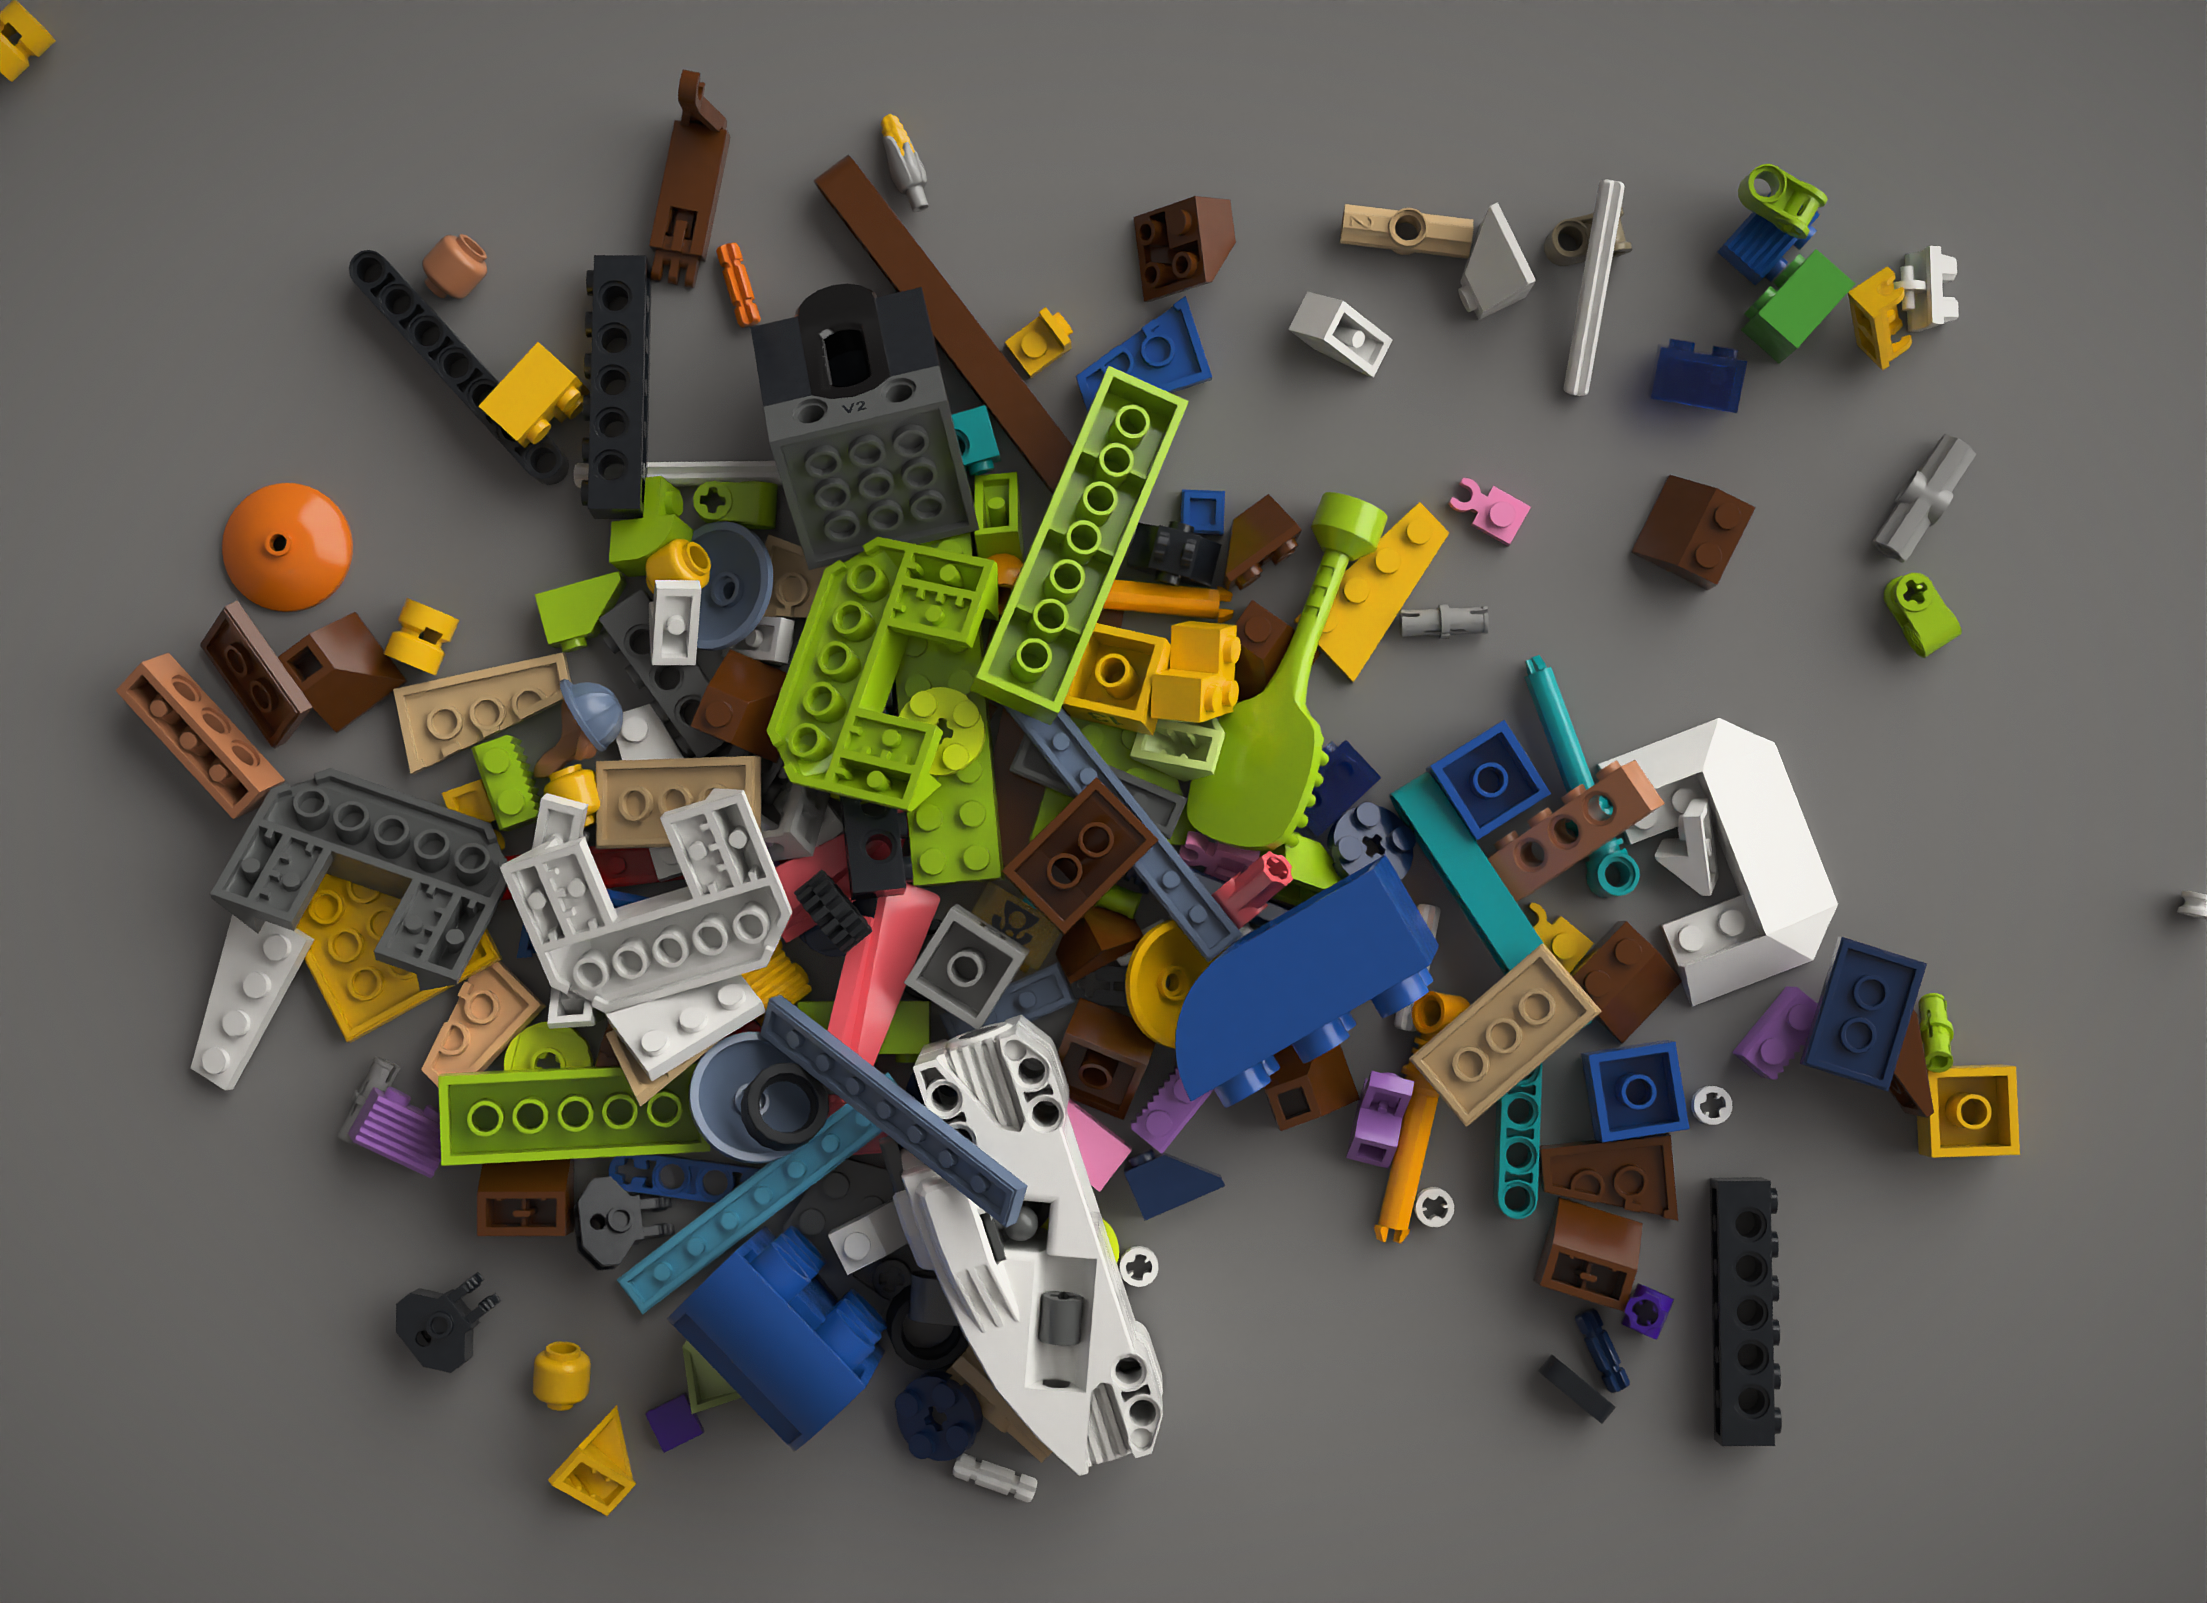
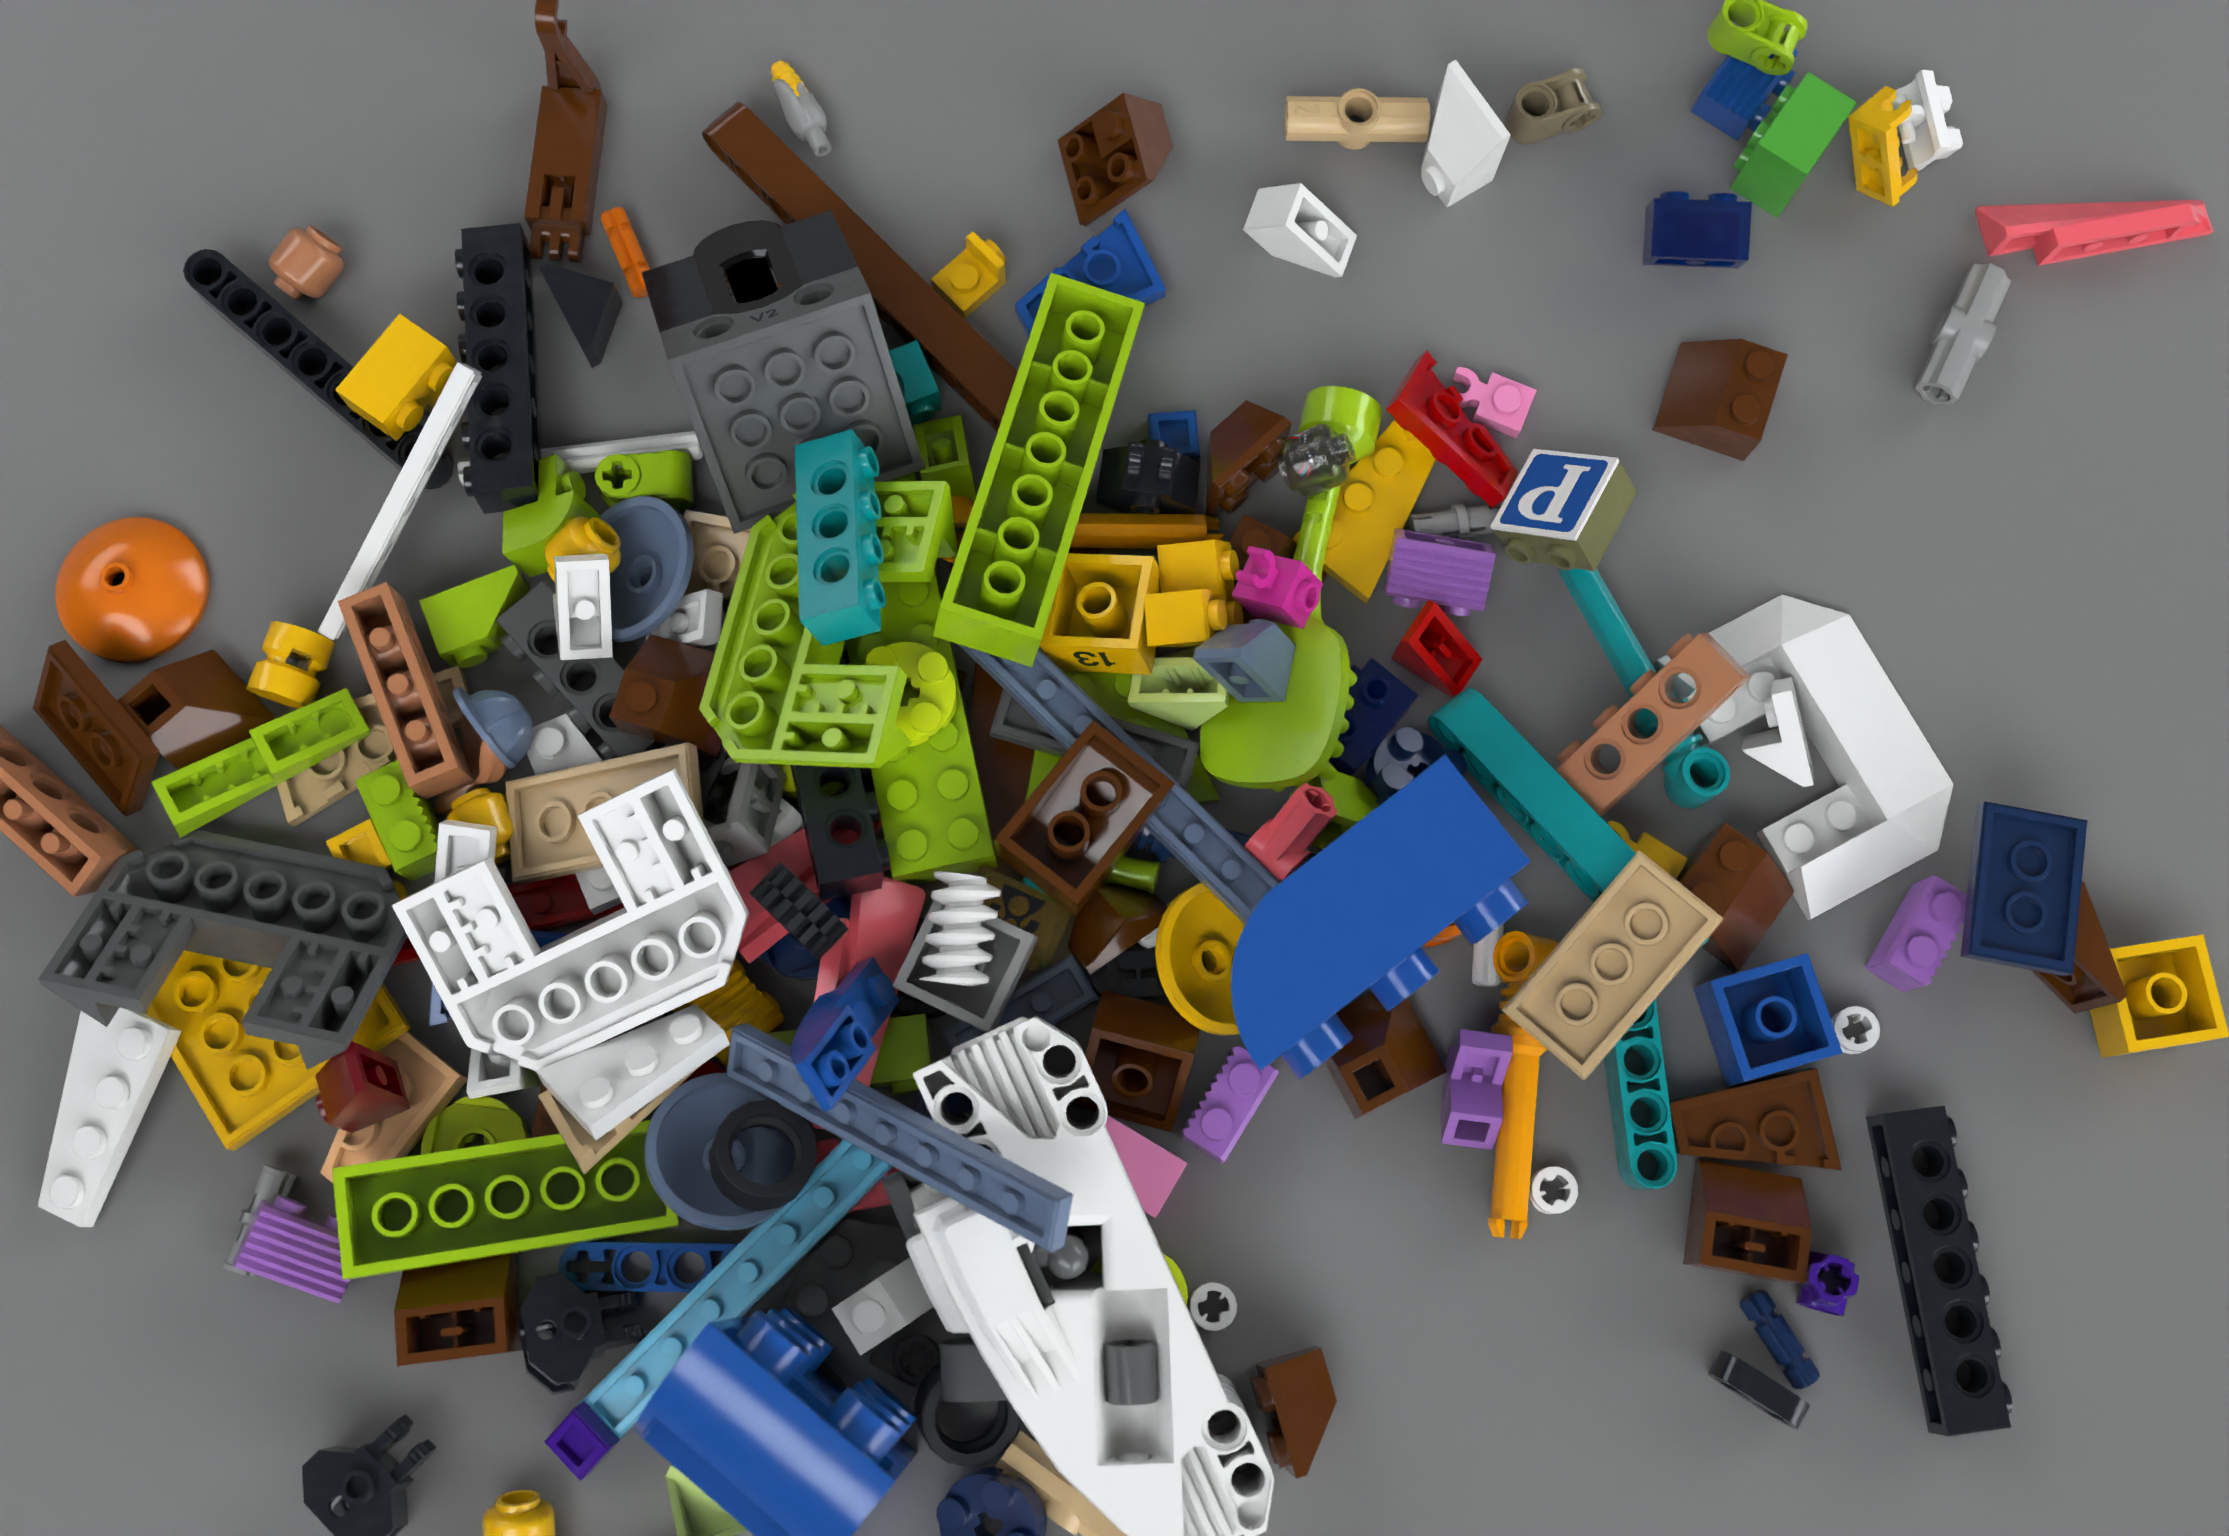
camera: 15 degrees left, 10 degrees down
(393, 718) = (261, 762): none -> lime slope
(459, 1010) = (359, 1089): none -> dark red slope
(519, 676) = (405, 691): none -> nougat brick
(526, 506) = (404, 493): none -> white tile
(616, 1309) = (582, 1440): none -> dark purple tile
(696, 336) = (588, 306): none -> black slope
(854, 1020) = (838, 1031): none -> blue slope
(890, 538) = (838, 538): none -> teal brick
(965, 949) = (960, 929): none -> white piece
(1167, 1182) = (1233, 1198): dark blue slope -> none
(1199, 1351) = (1300, 1404): none -> reddish brown slope
(1219, 859) = (1245, 810): bright pink plate -> none
(1236, 738) = (1249, 660): none -> sand blue slope
(1269, 677) = (1277, 588): none -> dark pink brick
(1319, 563) = (1316, 460): none -> clear smoke head
(1406, 737) = (1437, 651): none -> red slope
(1416, 666) = (1440, 571): none -> medium lavender brick
(1439, 537) = (1440, 424): none -> red wing
(1489, 780) = (1542, 682): blue brick -> none
(1532, 628) = (1564, 509): none -> piece
(1594, 287) = (1569, 149): white axle -> none
(1923, 619) = (1987, 456): lime piece -> none
(1936, 1032) = (2113, 924): lime pin -> none
(2063, 405) = (2088, 229): none -> coral wedge

